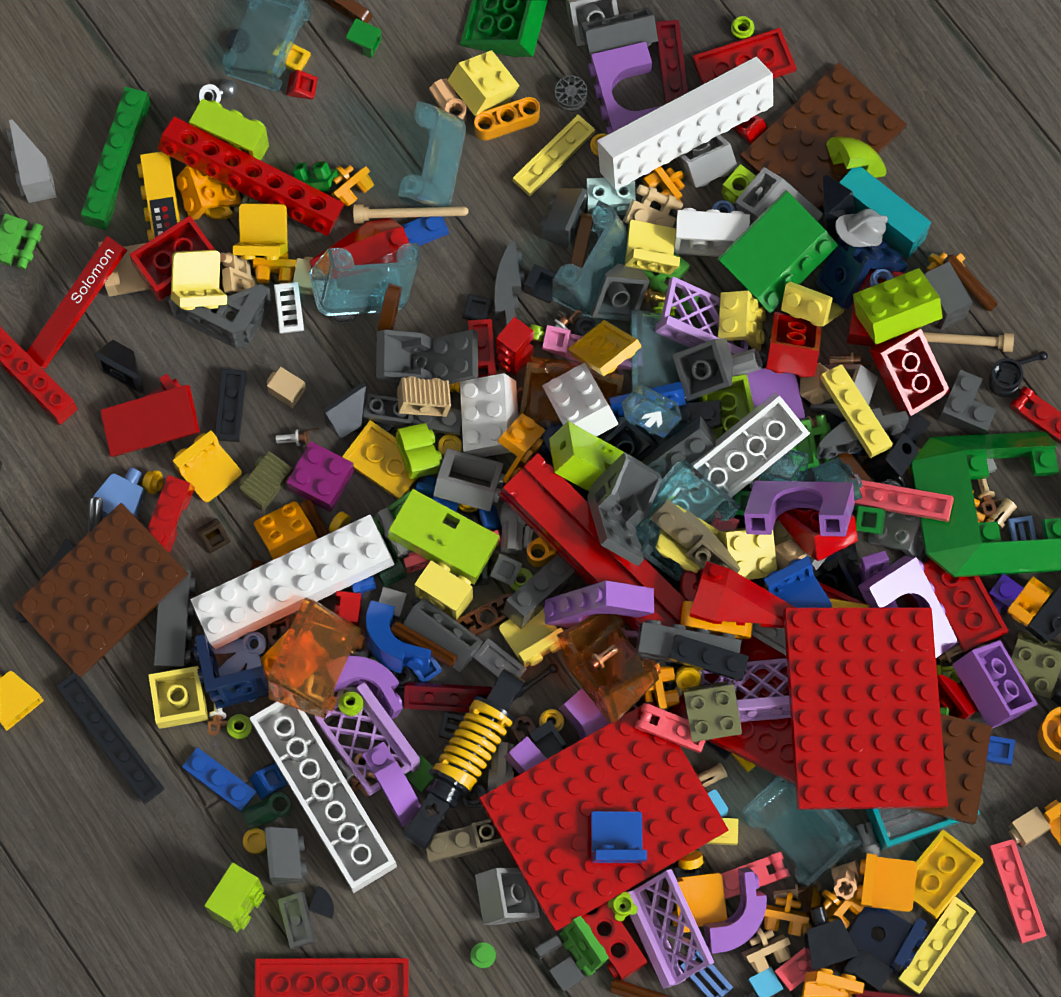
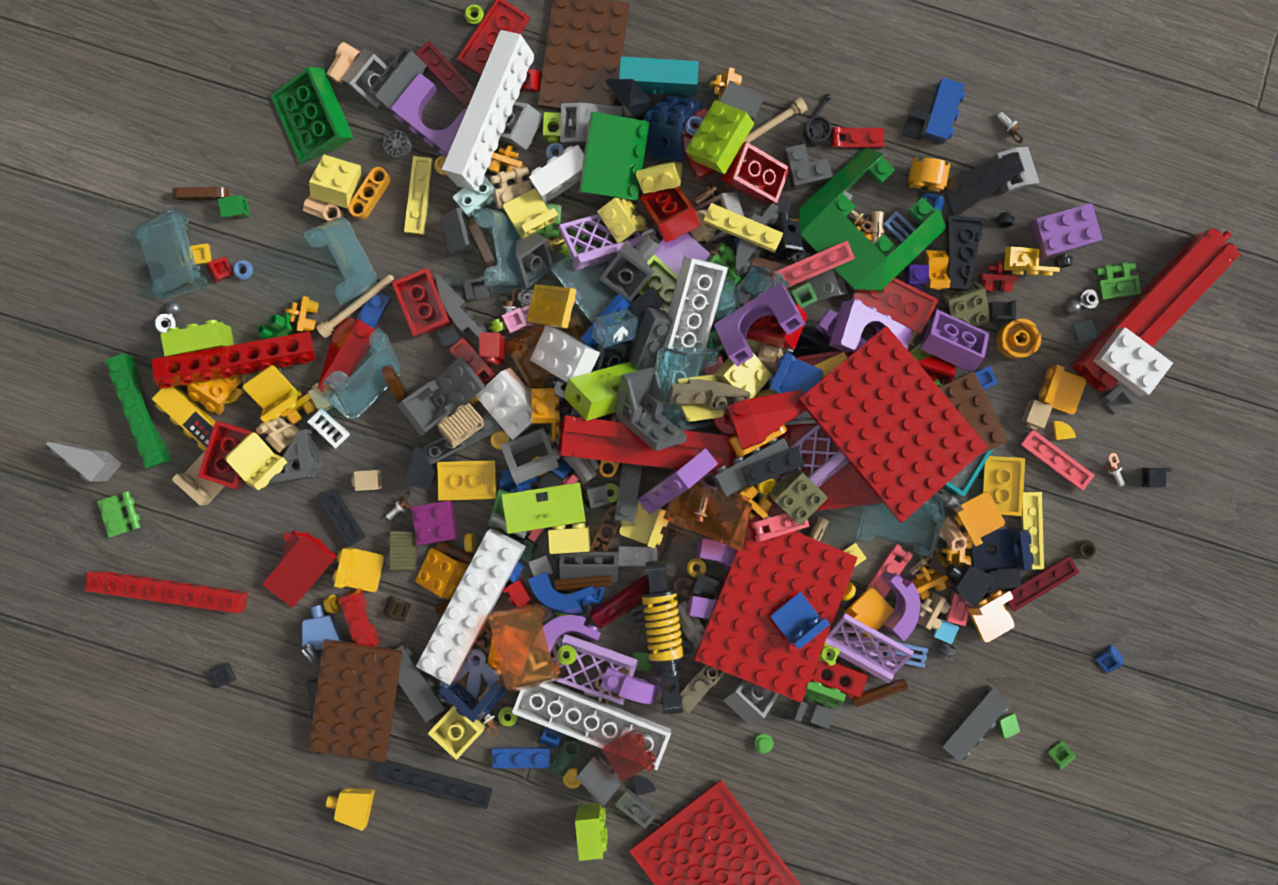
camera: 30 degrees left, 15 degrees up
(76, 302) = (189, 527): red tile -> none
(120, 364) = (251, 545): black slope -> none
(325, 95) = (237, 270): none -> medium blue plate
(336, 847) = (629, 755): none -> clear red bracket
(418, 450) = (484, 461): lime brick -> none
(476, 256) = (421, 302): none -> red brick
(718, 802) = (836, 543): medium azure tile -> none
(855, 154) = (614, 50): lime brick -> none
(861, 228) = (657, 100): light grey piece -> none
(976, 289) = (750, 83): reddish brown axle -> none
(1046, 867) = (1062, 430): none -> yellow tile

